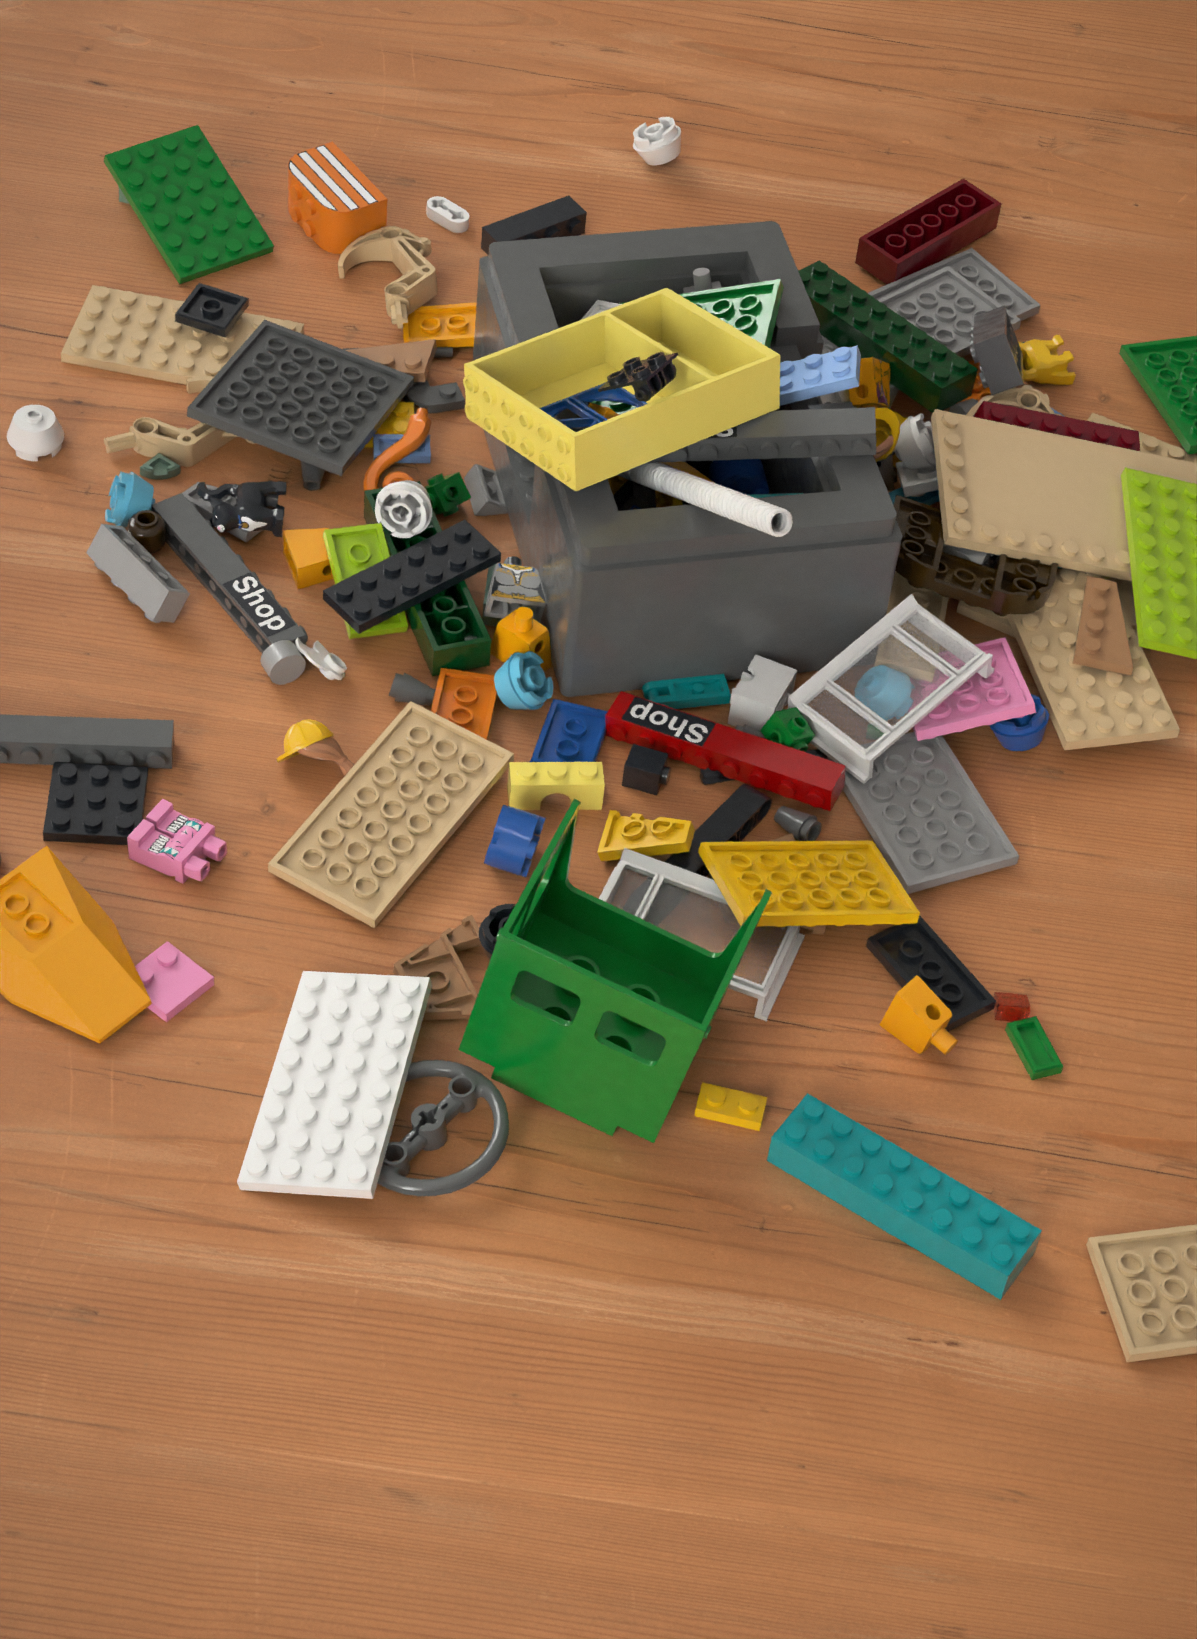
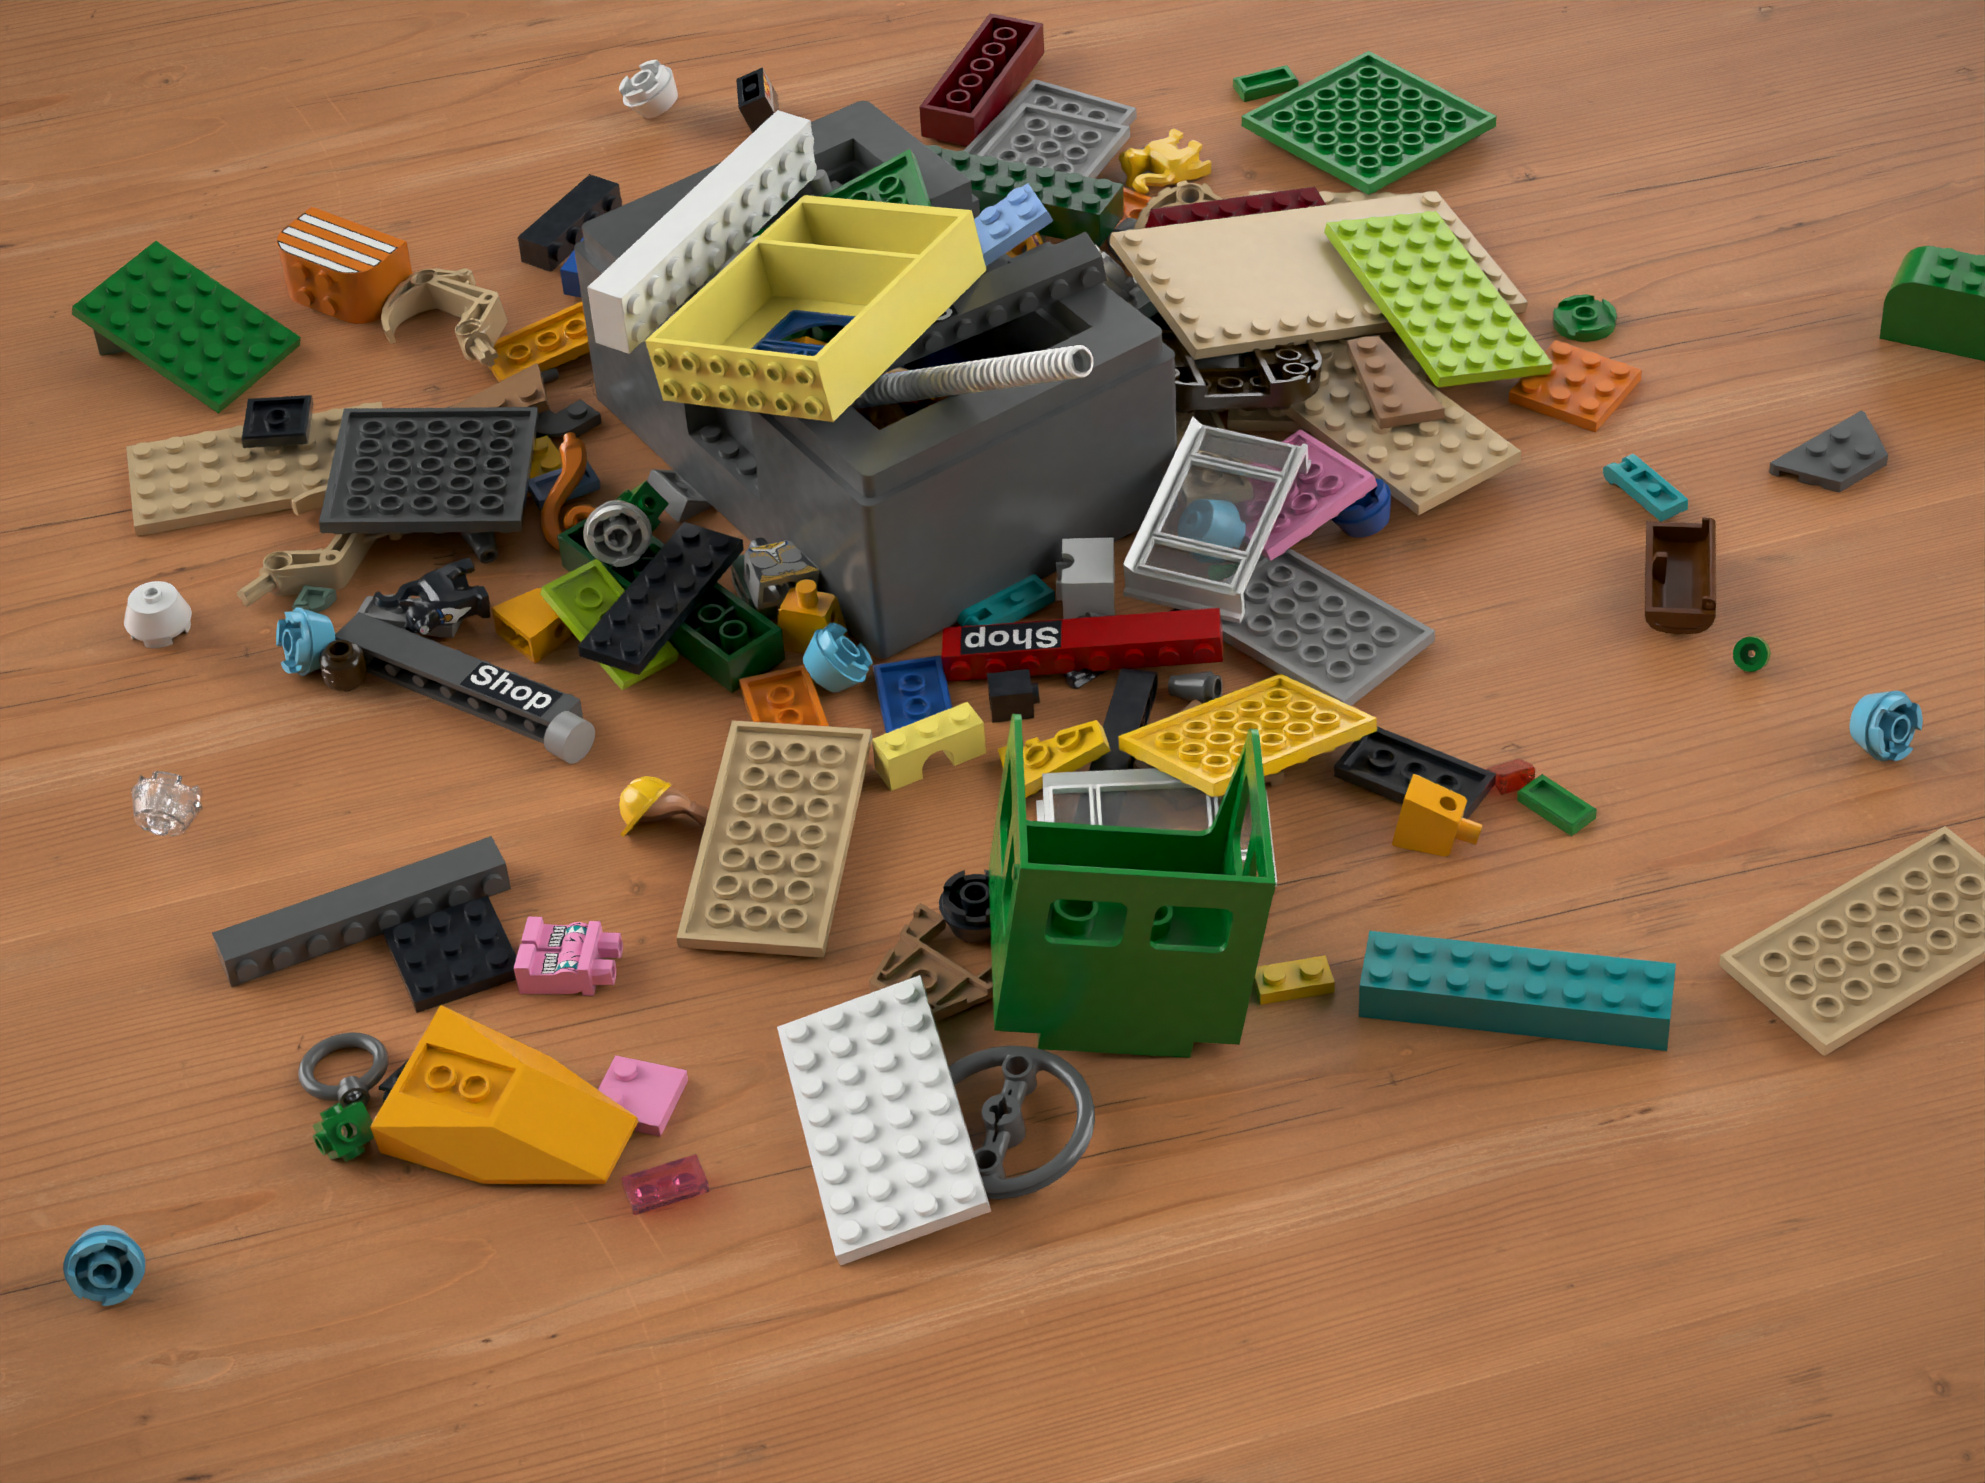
camera: 15 degrees left, 5 degrees down
(137, 573) = (359, 709): light grey brick -> none
(143, 1064) = (665, 1184): none -> clear pink plate
(328, 663) = (619, 721): white plate -> none
(408, 689) = (719, 713): dark grey cone -> none
(447, 214) = (467, 241): white beam -> none
(514, 840) = (922, 813): blue brick -> none
(572, 286) = (701, 232): none -> white brick
(645, 375) = (852, 276): black hinge -> none
(737, 184) = (756, 98): none -> black brick
(789, 729) = (1138, 596): green brick -> none
(997, 351) = (1131, 160): dark grey brick -> none
(1162, 323) = (1265, 83): none -> green tile

